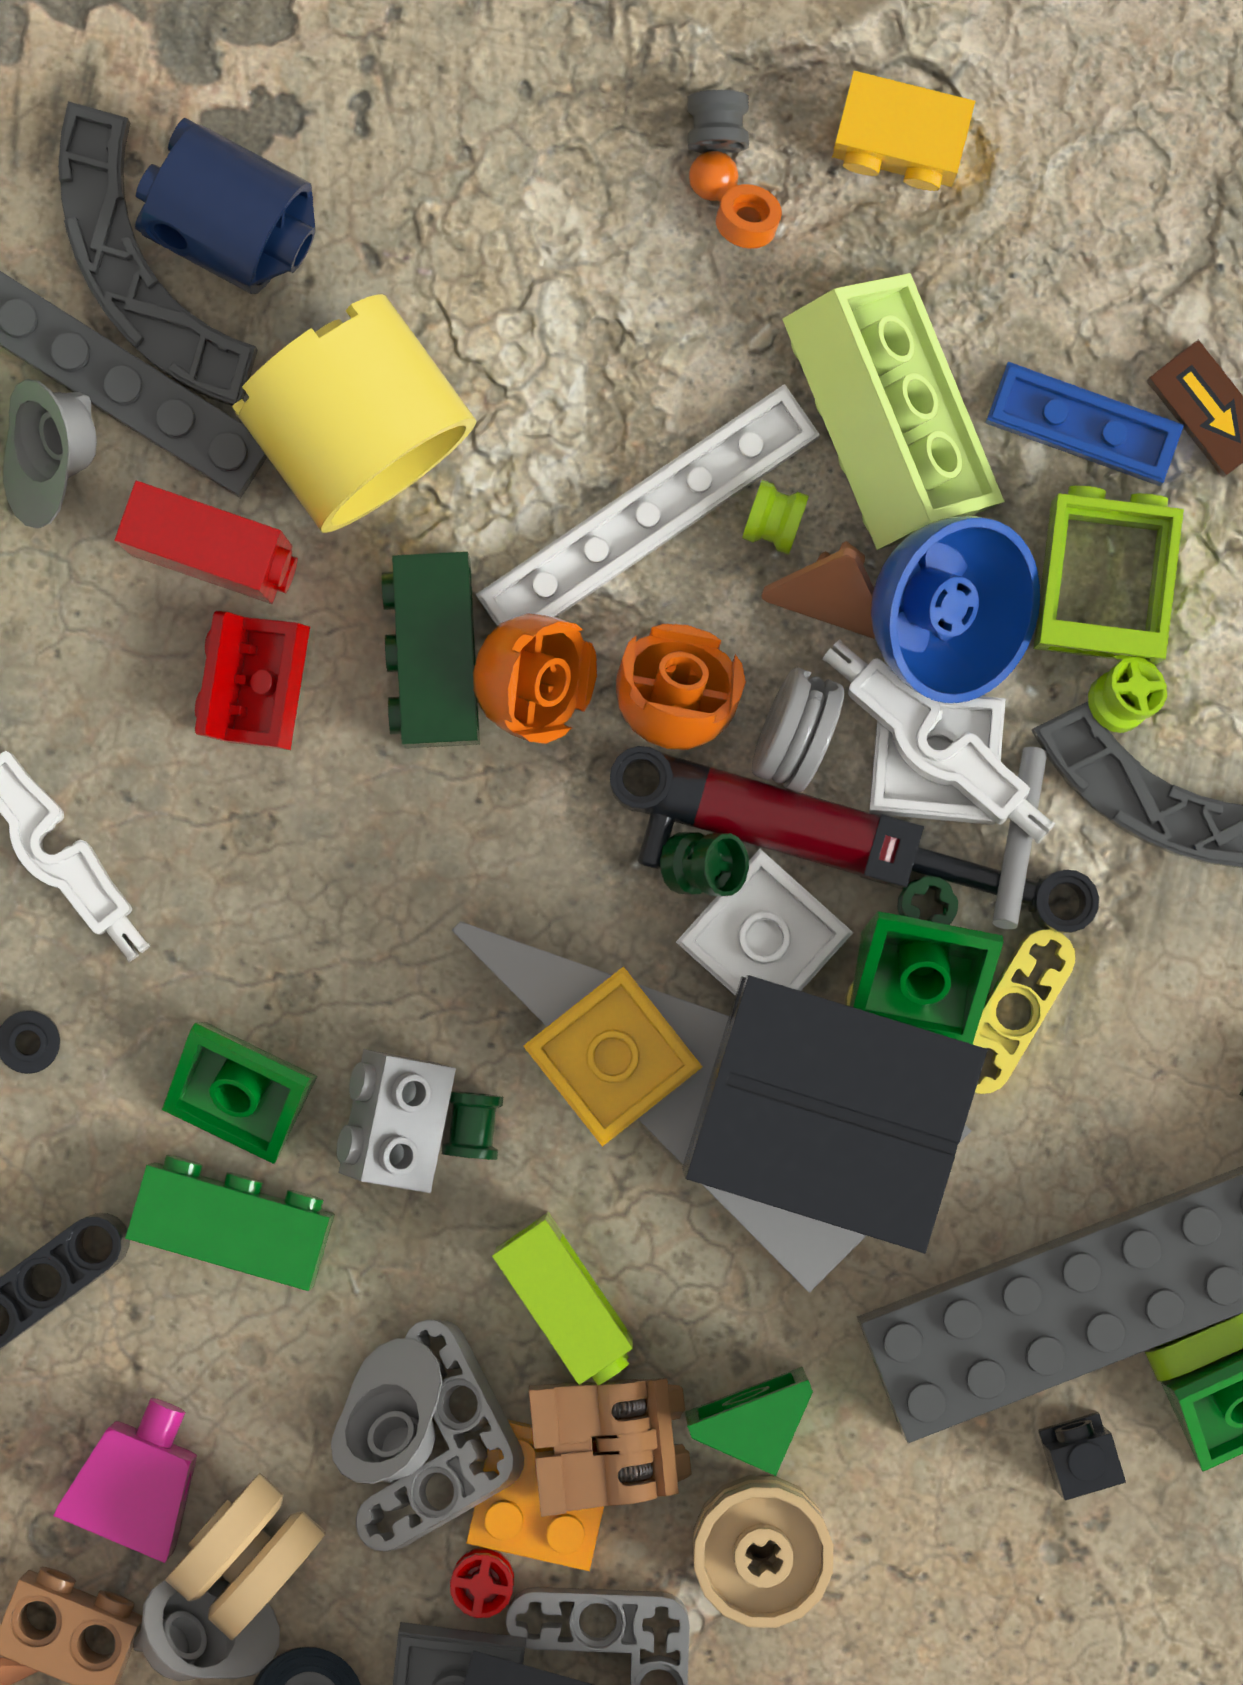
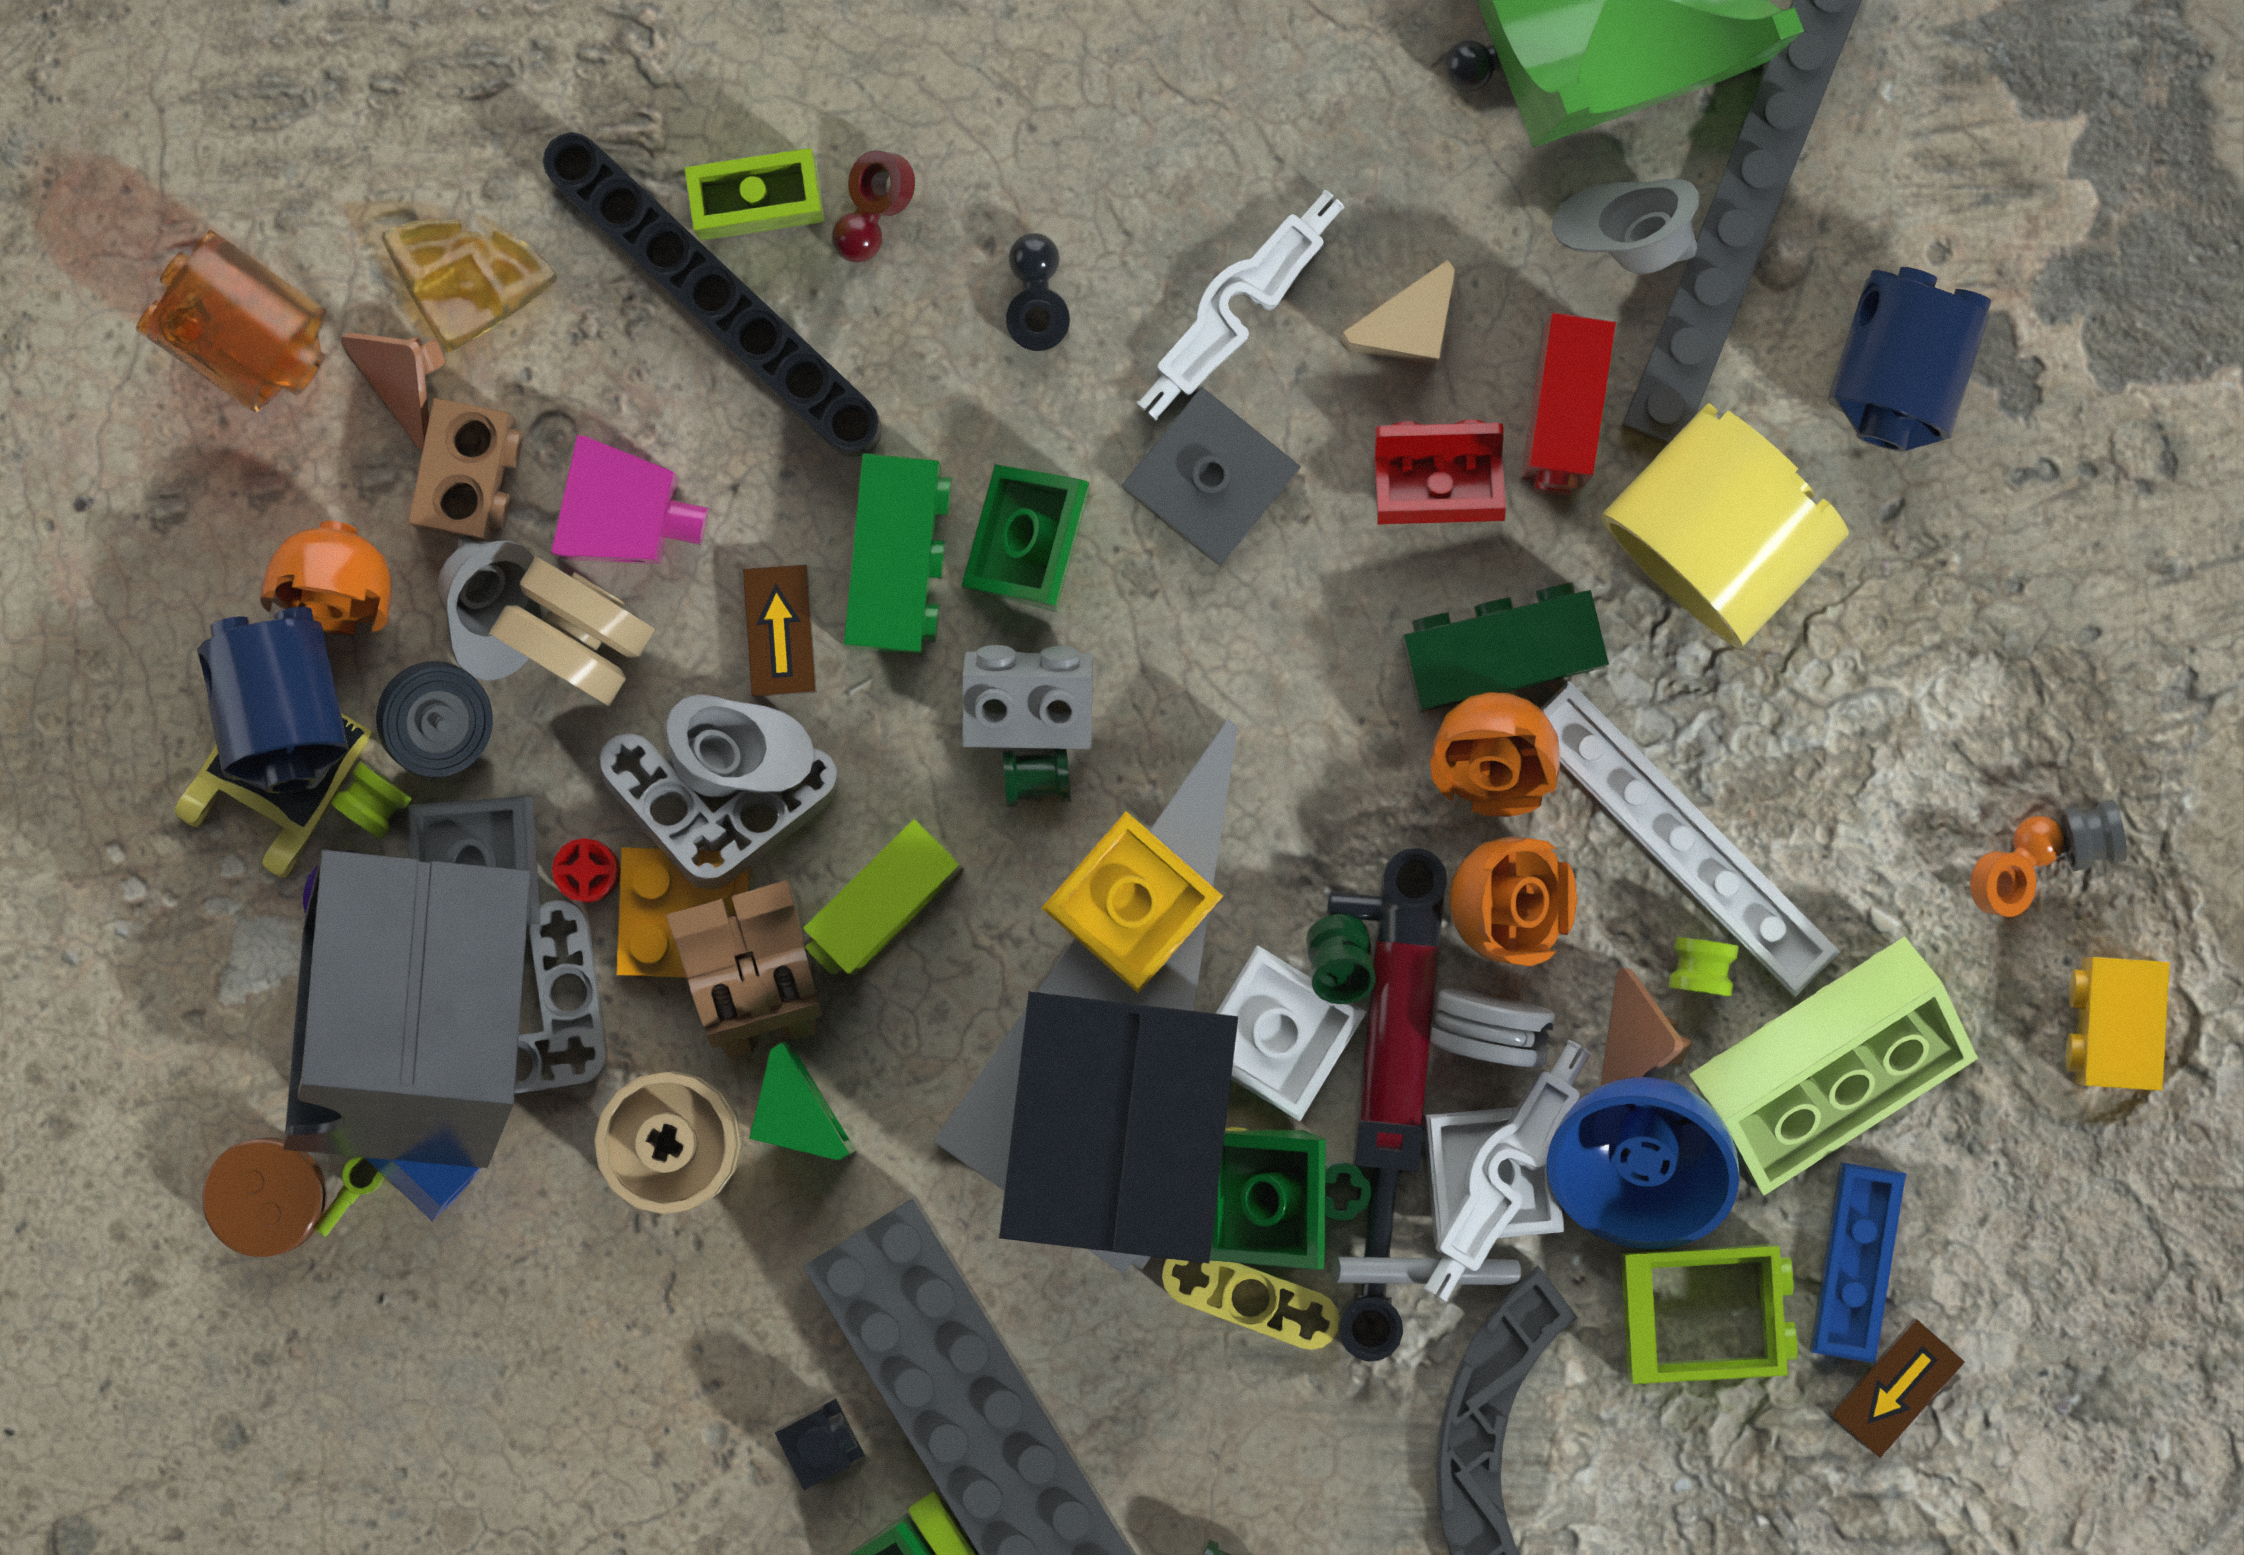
camera: 85 degrees right, 0 degrees up
(101, 684) = (1408, 324): none -> tan slope
(118, 273) = (1825, 261): dark grey tile -> none
(213, 902) = (1211, 476): none -> dark grey plate
(284, 1349) = (779, 630): none -> reddish brown tile
(1133, 680) = (1605, 1360): lime wheel -> none

